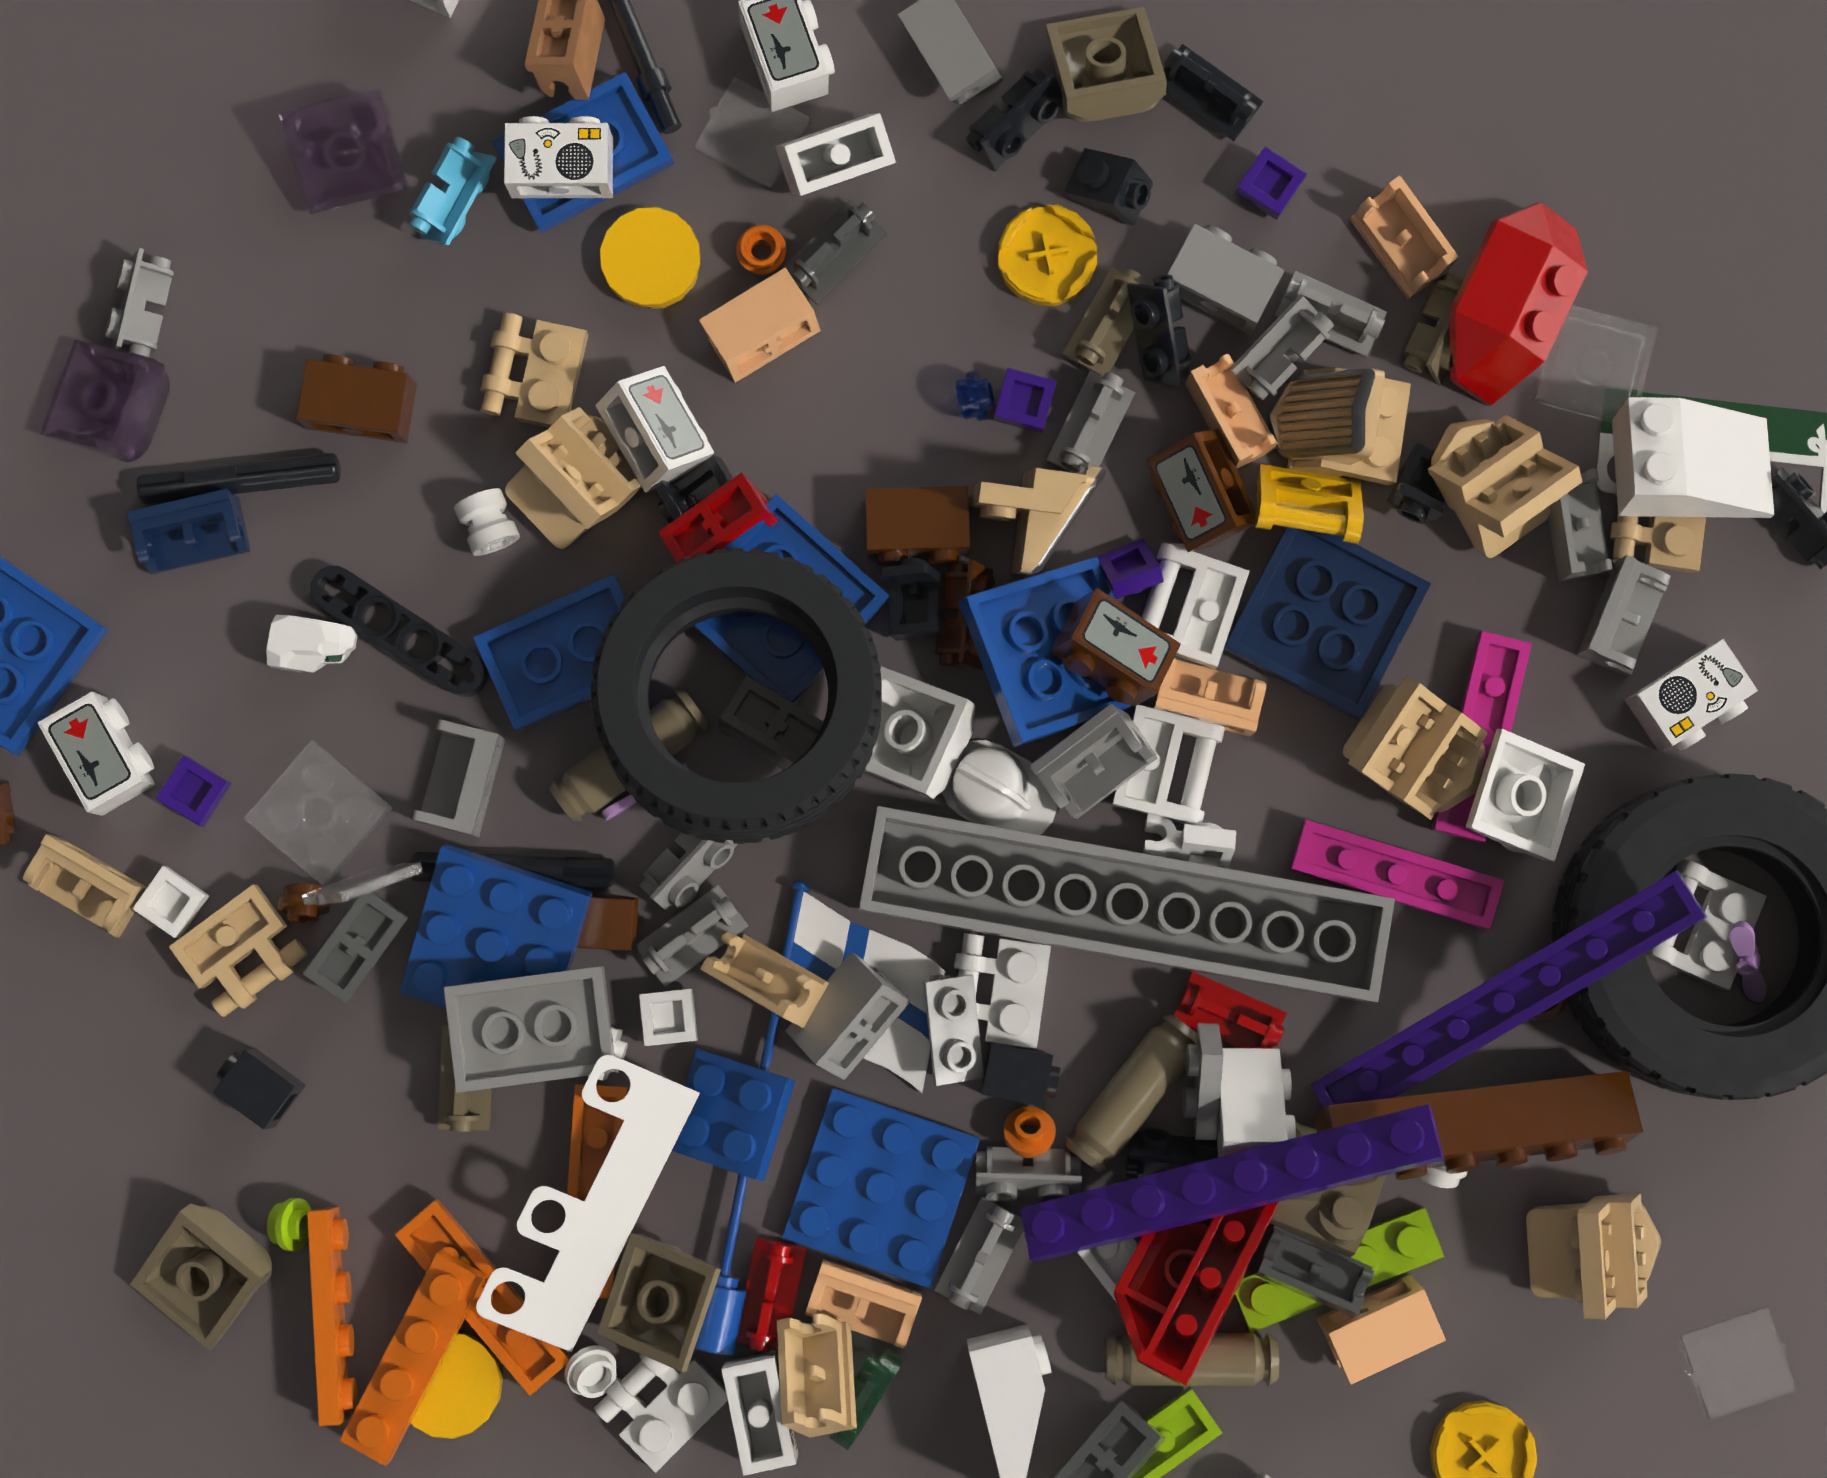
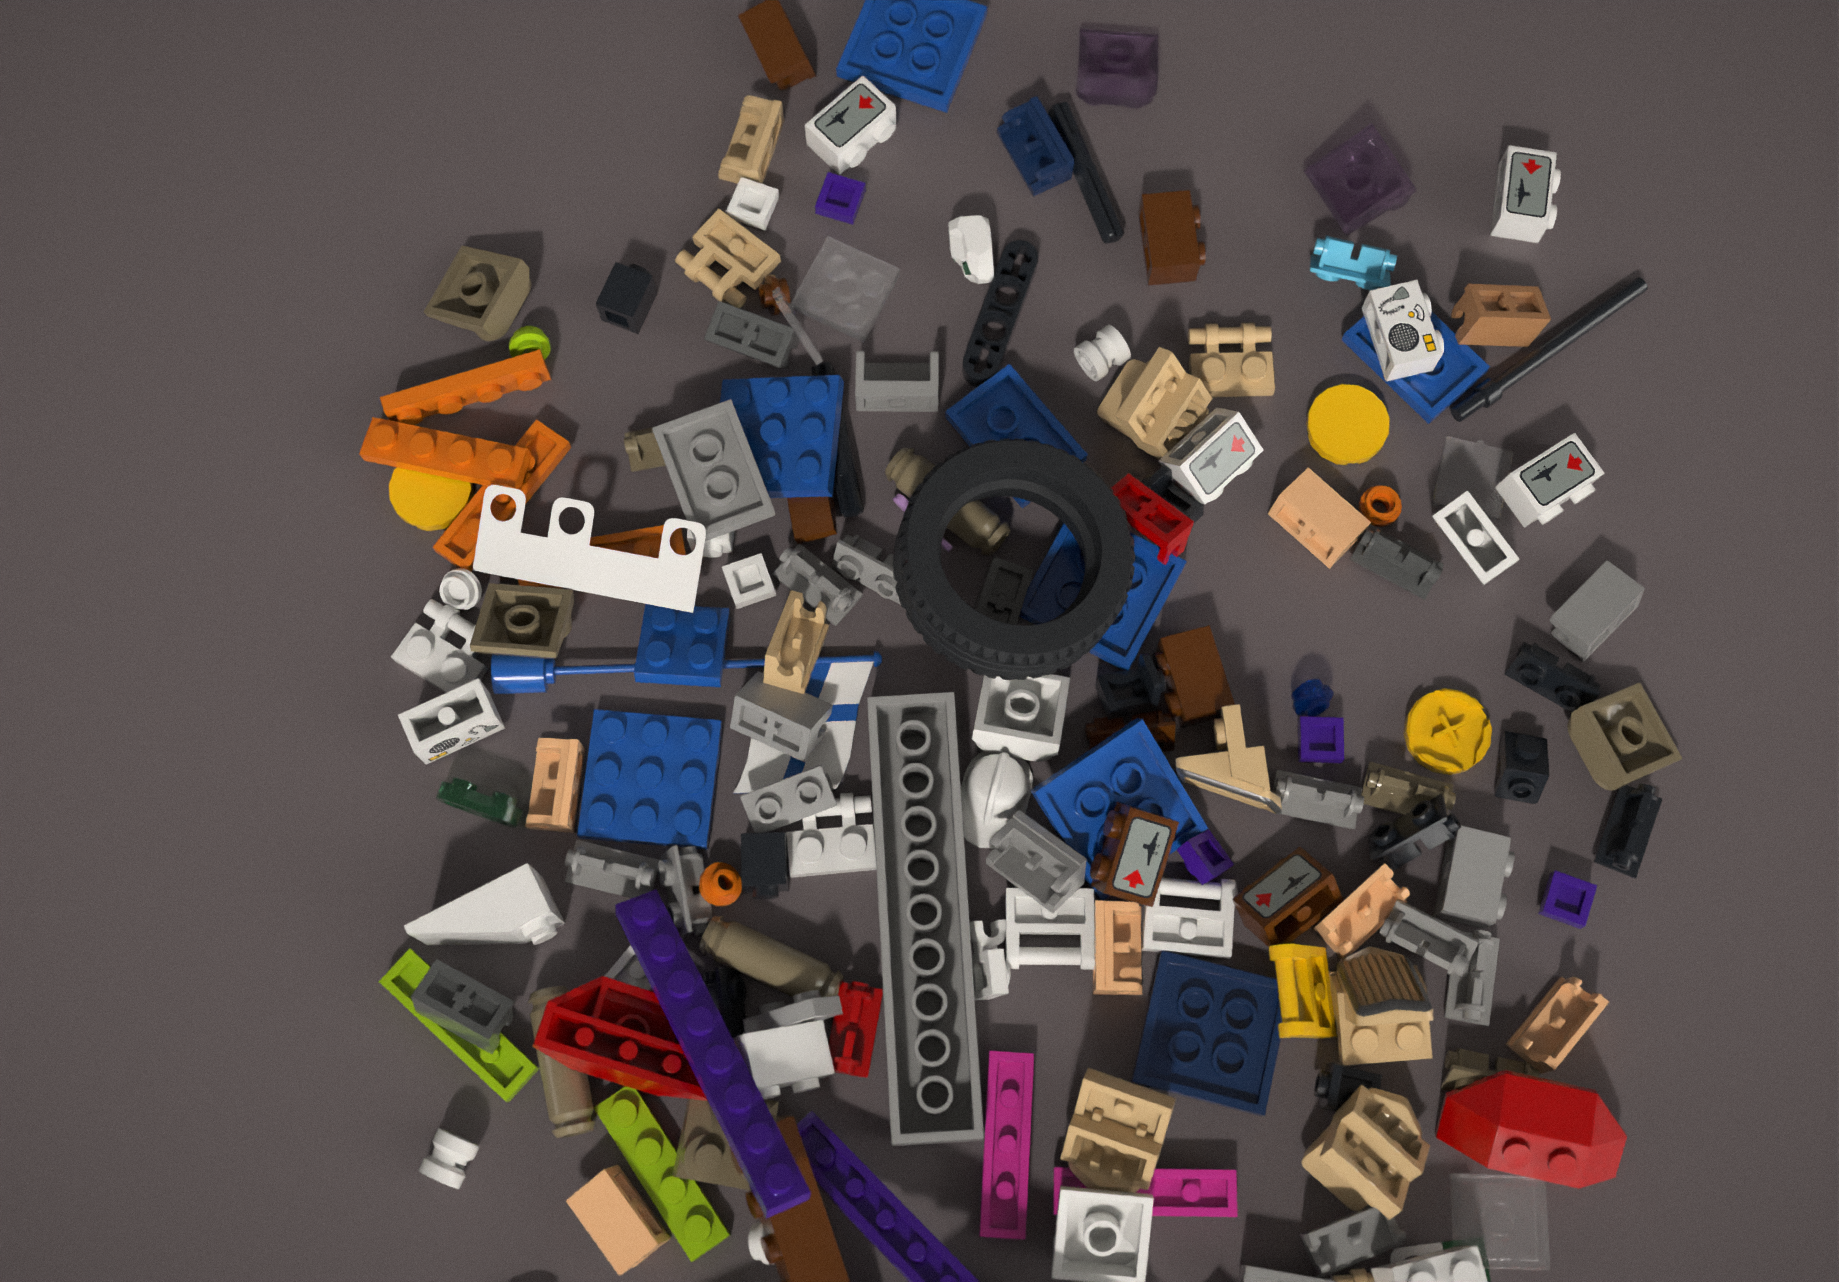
camera: 80 degrees right, 10 degrees down
(141, 285) = (1213, 69): light grey hinge -> none
(771, 1291) = (547, 712): red hinge -> none
(816, 1376) = (488, 756): tan hinge -> none
(1314, 1271) = (654, 1145): dark grey hinge -> none

